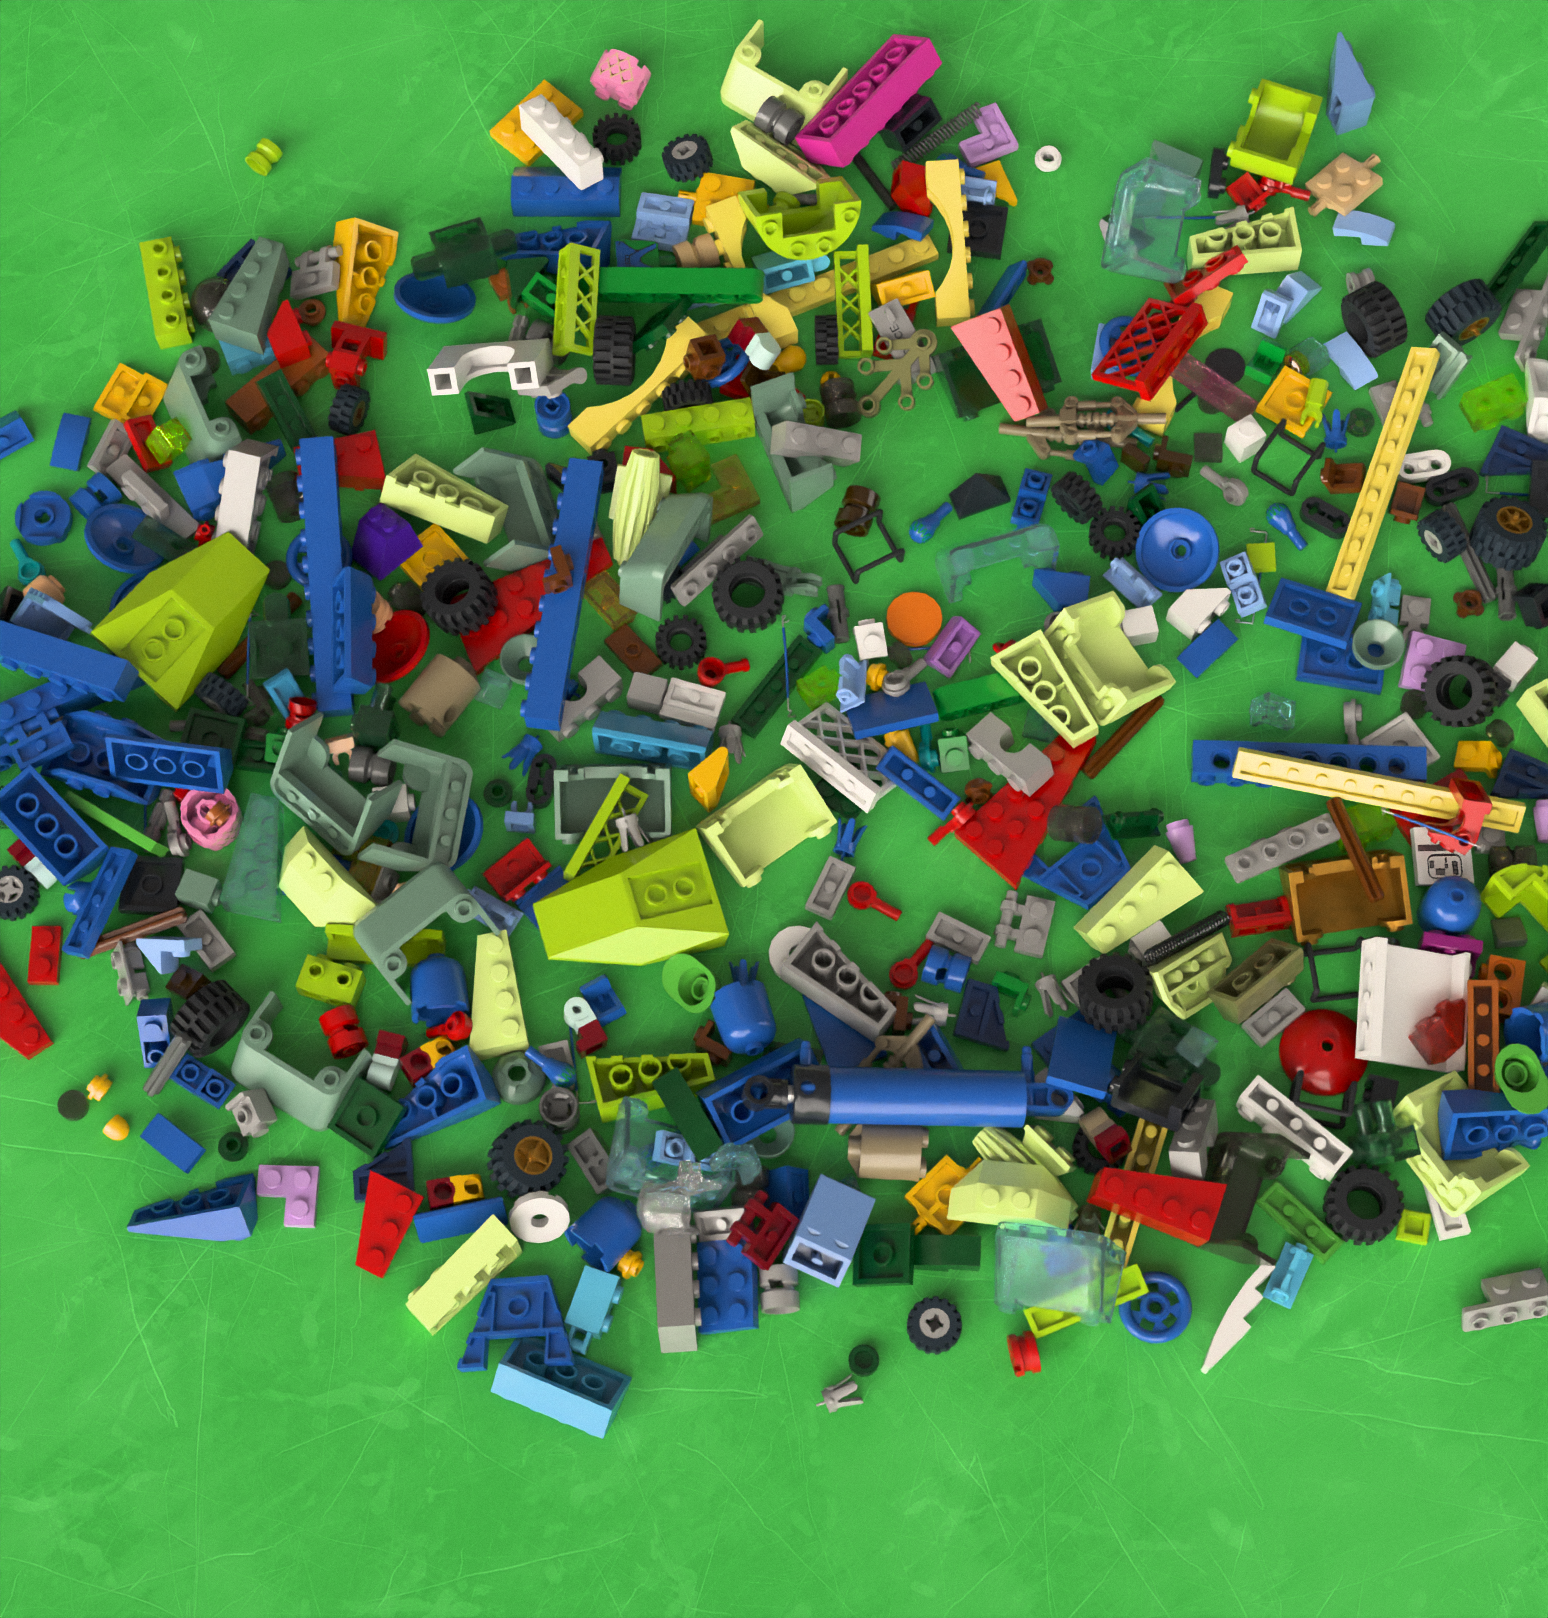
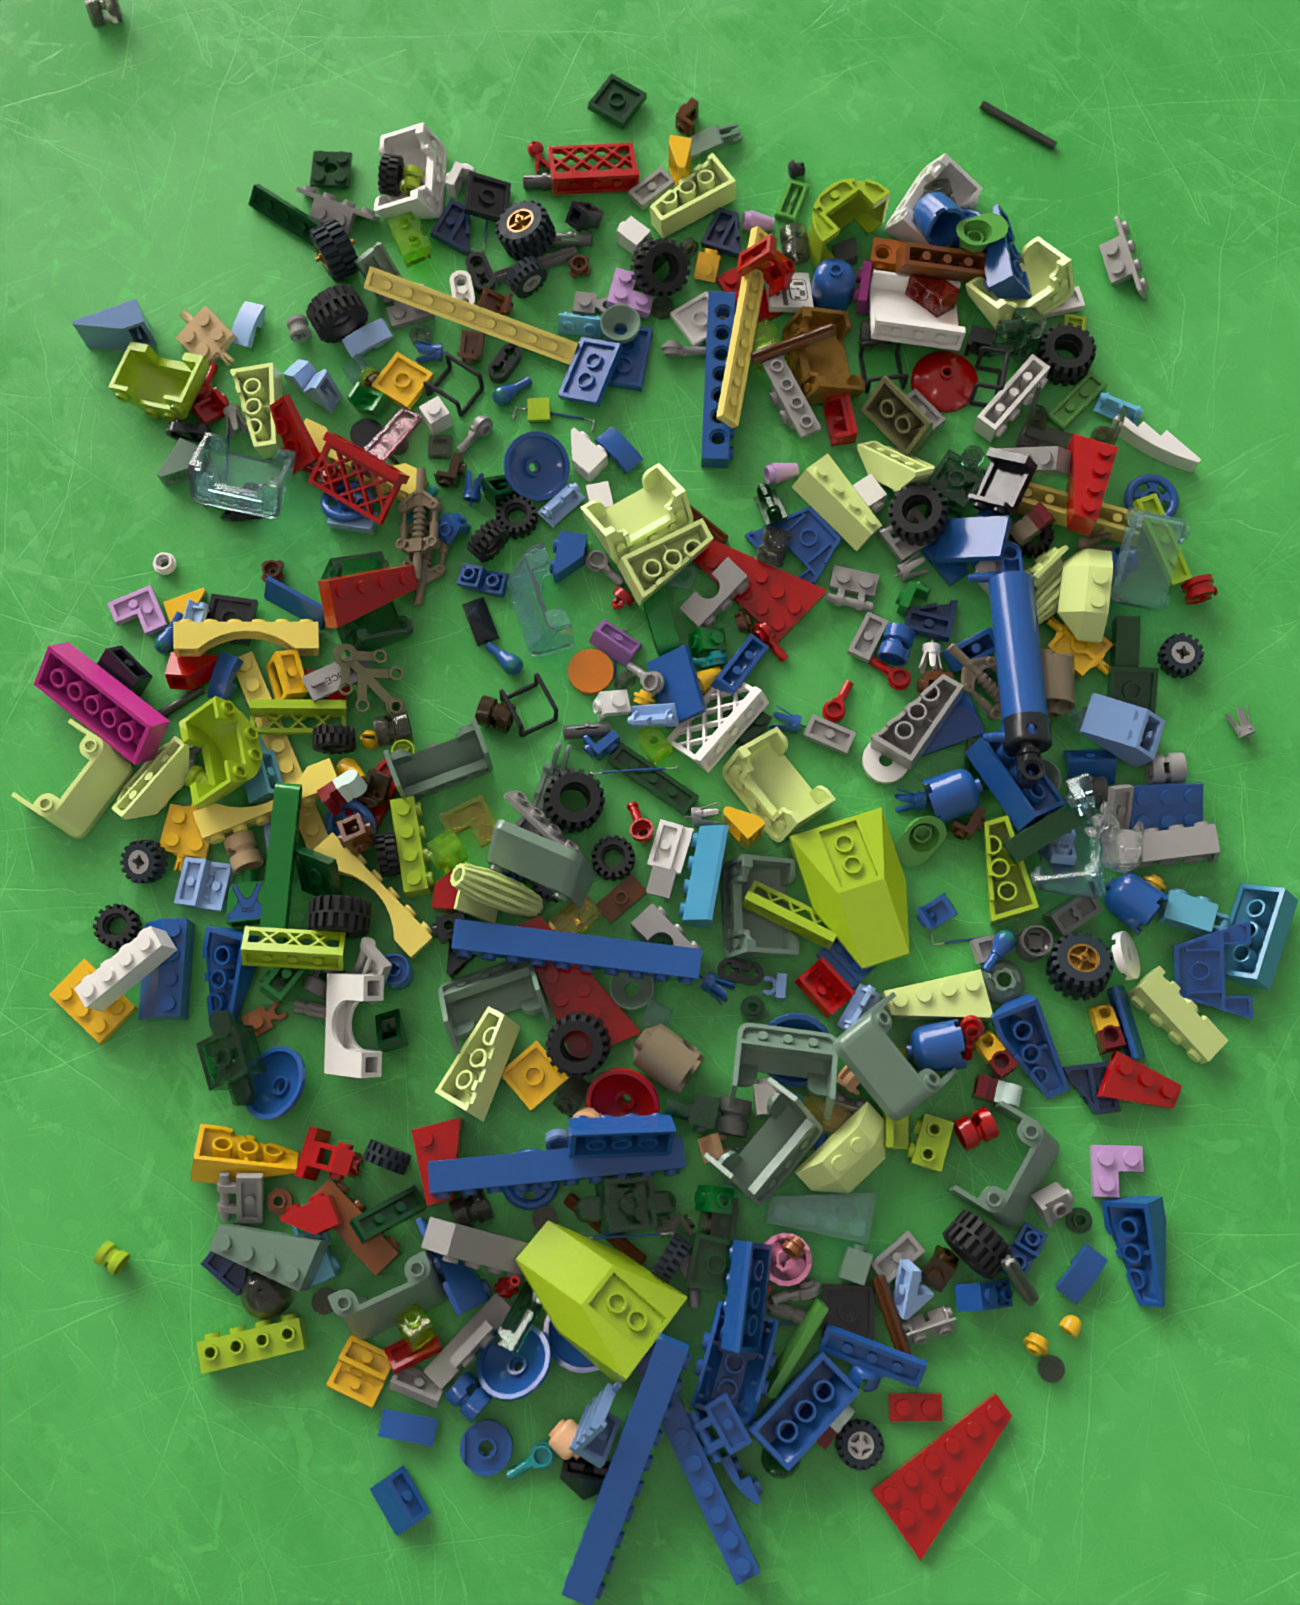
camera: 90 degrees left, 5 degrees up
(281, 688) = (672, 1194): dark azure tile -> none
(300, 710) = (689, 1182): red wheel -> none
(367, 1117) = (1050, 1102): dark green plate -> none
(383, 541) = (521, 1117): dark purple slope -> none
(519, 274) = (261, 1004): dark green slope -> none
(563, 565) = (561, 946): reddish brown bracket -> none
(587, 1027) = (957, 926): leg -> none
(620, 78) = (57, 922): bright pink brick -> none
(630, 824) = (788, 893): light grey piece -> none
(770, 1234) = (1133, 770): dark red plate -> none
(779, 120) = (116, 778): dark grey wheel -> none
(801, 439) = (437, 744): light grey arch -> none
(863, 1360) = (1210, 708): dark green tile -> none
(940, 138) = (140, 648): dark grey piece -> none
(1135, 458) = (451, 498): dark brown tile -> none
(1153, 949) = (865, 469): black piece -> none
(1196, 1046) = (960, 455): clear light blue slope -> none
(1243, 584) = (563, 421): light blue slope -> none
(1273, 711) = (671, 406): clear light blue bracket -> none
(1315, 400) = (407, 361): lime bar -> none
(1433, 828) = (779, 286): piece -> none

